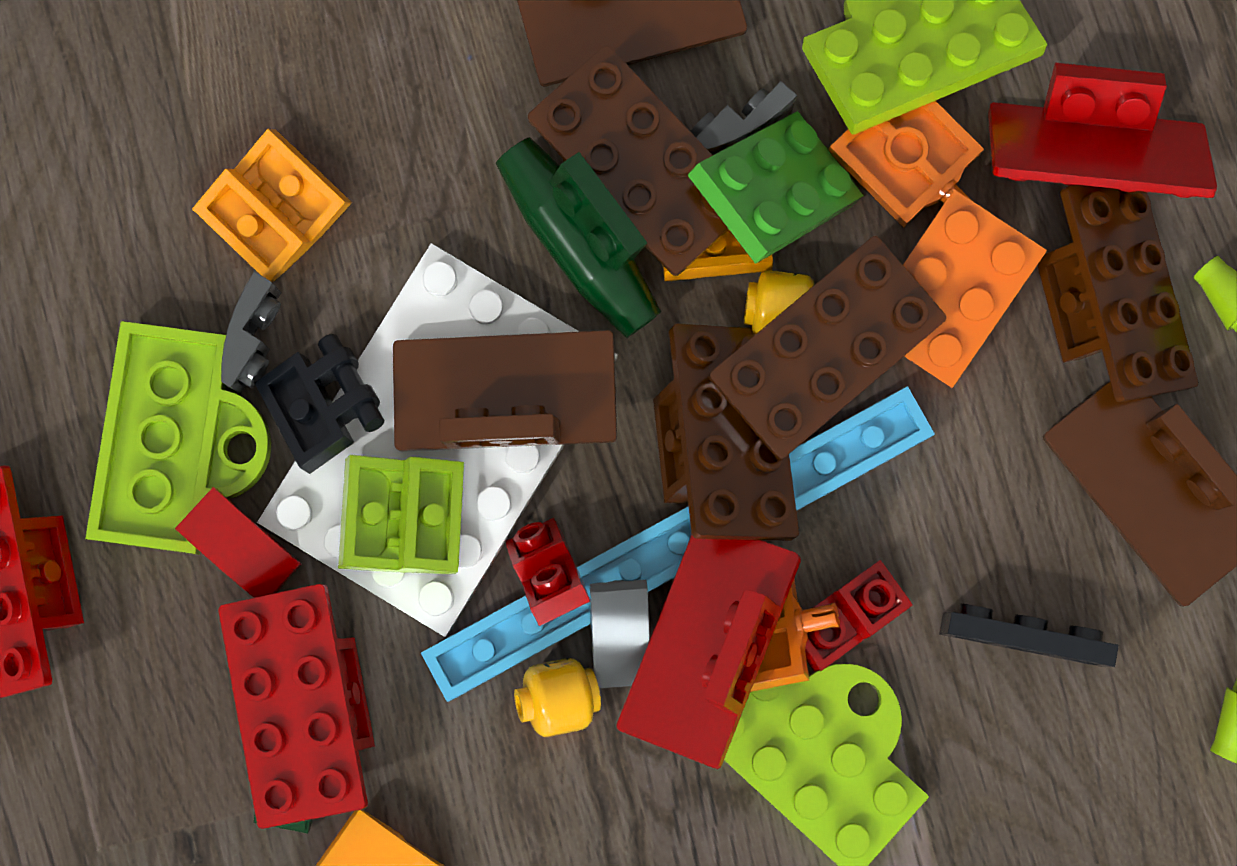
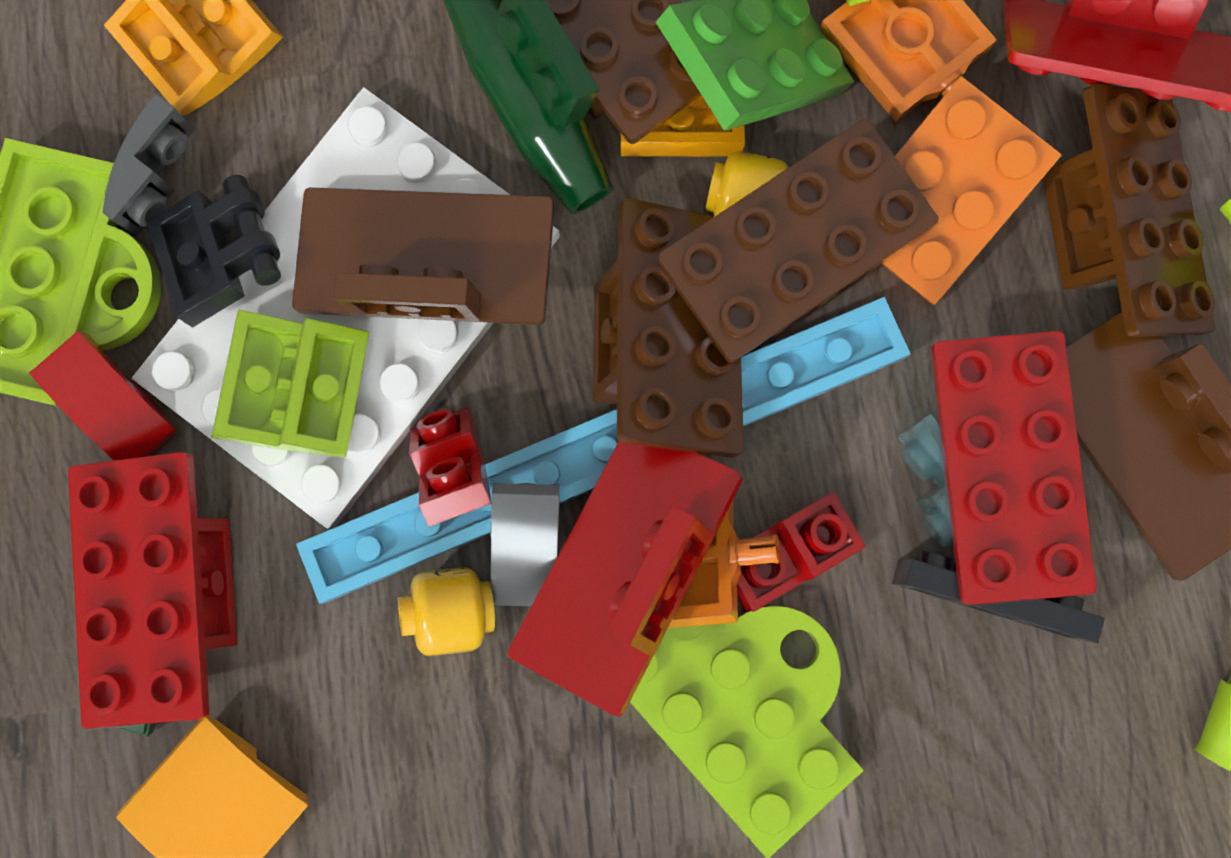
camera: 10 degrees right, 0 degrees up
(981, 560) = (925, 458): none -> clear light blue slope
(1029, 525) = (1013, 468): none -> red bracket

